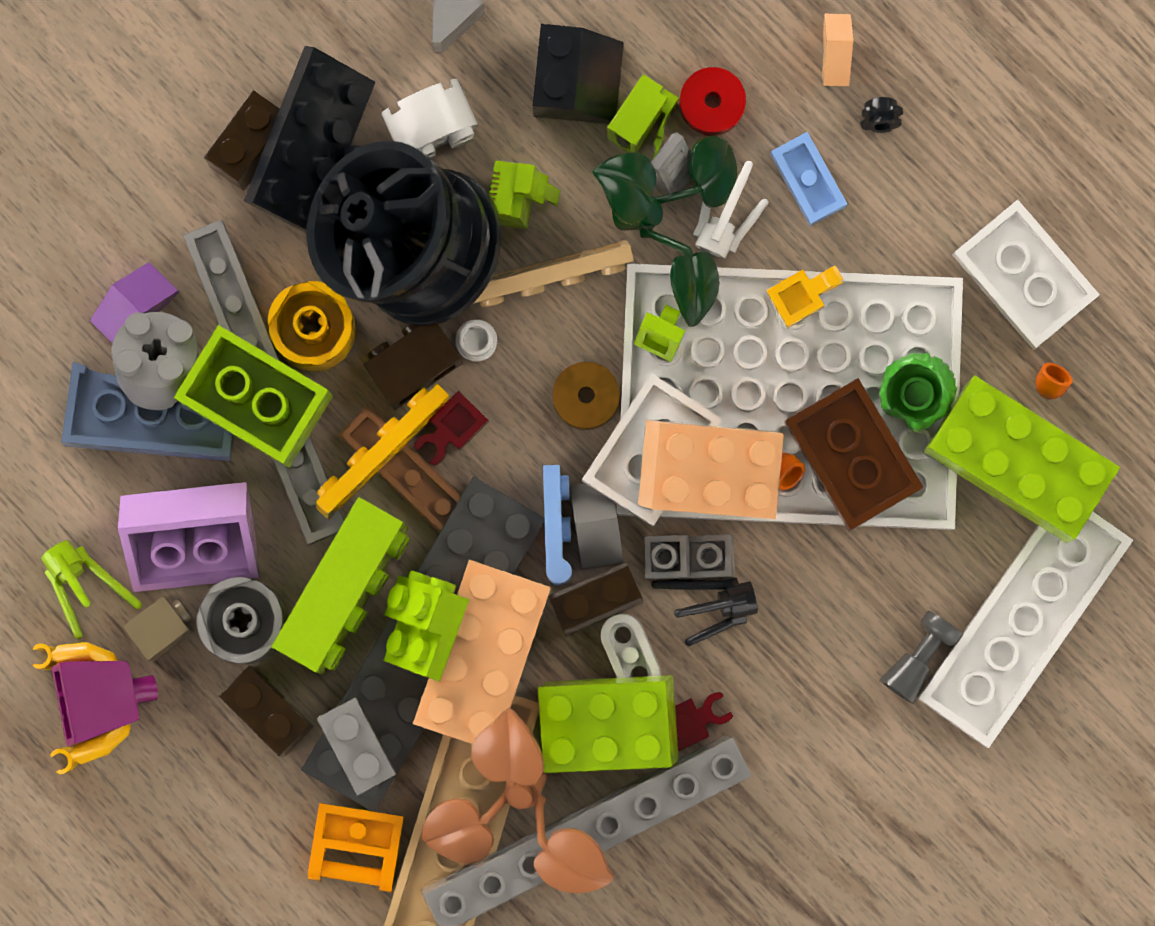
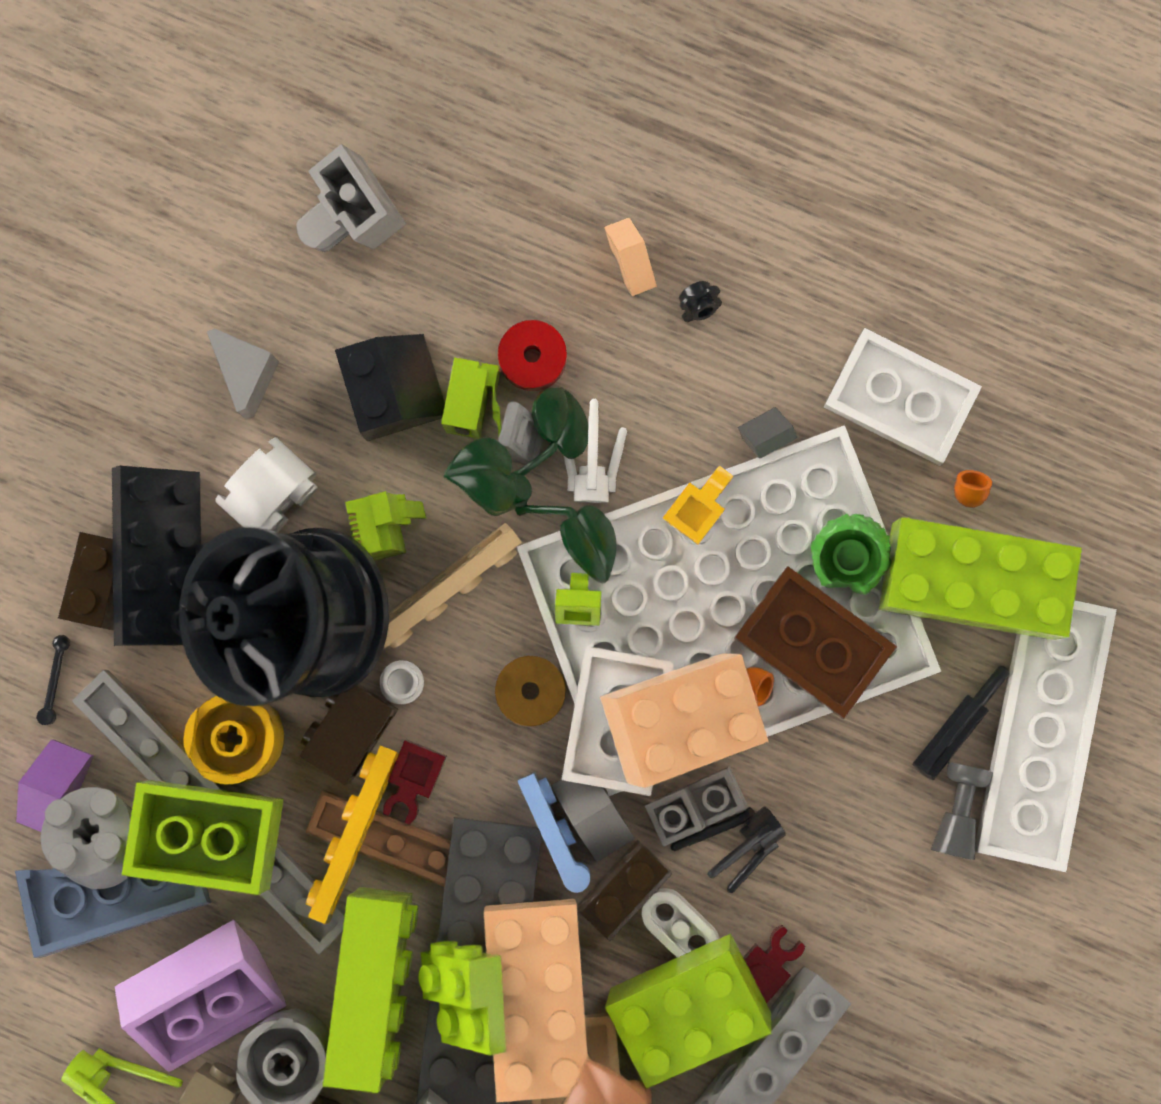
camera: 20 degrees left, 0 degrees up
(153, 239) = (47, 715): none -> black hinge
(808, 179) = (656, 391): light blue plate -> none
(891, 256) = (767, 432): none -> dark grey tile
(949, 585) = (958, 727): none -> black axle

